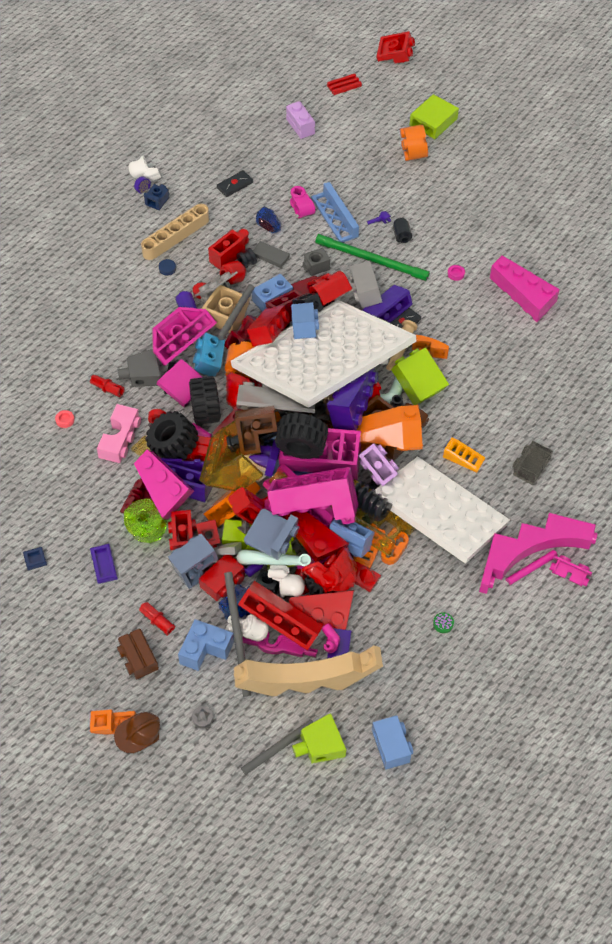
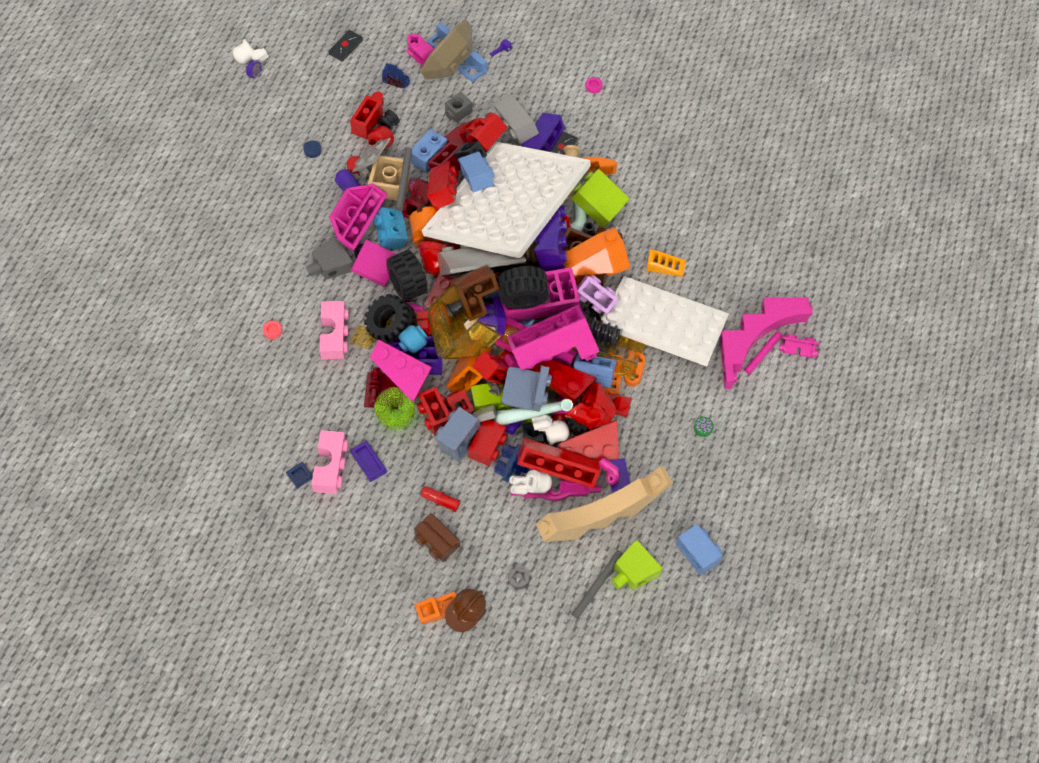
camera: 20 degrees left, 5 degrees up
(60, 568) = (328, 478): none -> bright pink arch
(107, 385) = (301, 285): red axle -> none
(155, 413) = (363, 302): red tile -> none
(156, 193) = (275, 75): dark blue brick -> none
(175, 231) = (307, 110): tan beam -> none
(183, 459) = (412, 339): none -> dark azure head
(204, 640) = (496, 505): medium blue brick -> none
(235, 622) = (521, 483): dark grey bar -> none
(271, 254) = (410, 110): dark grey tile -> none
(325, 208) = (449, 53): none -> dark tan wedge
(331, 243) = (461, 84): green piece -> none
(402, 230) = (528, 55): black brick -> none
(524, 287) = (663, 84): dark pink wedge -> none
(532, 462) = (731, 253): clear smoke brick -> none

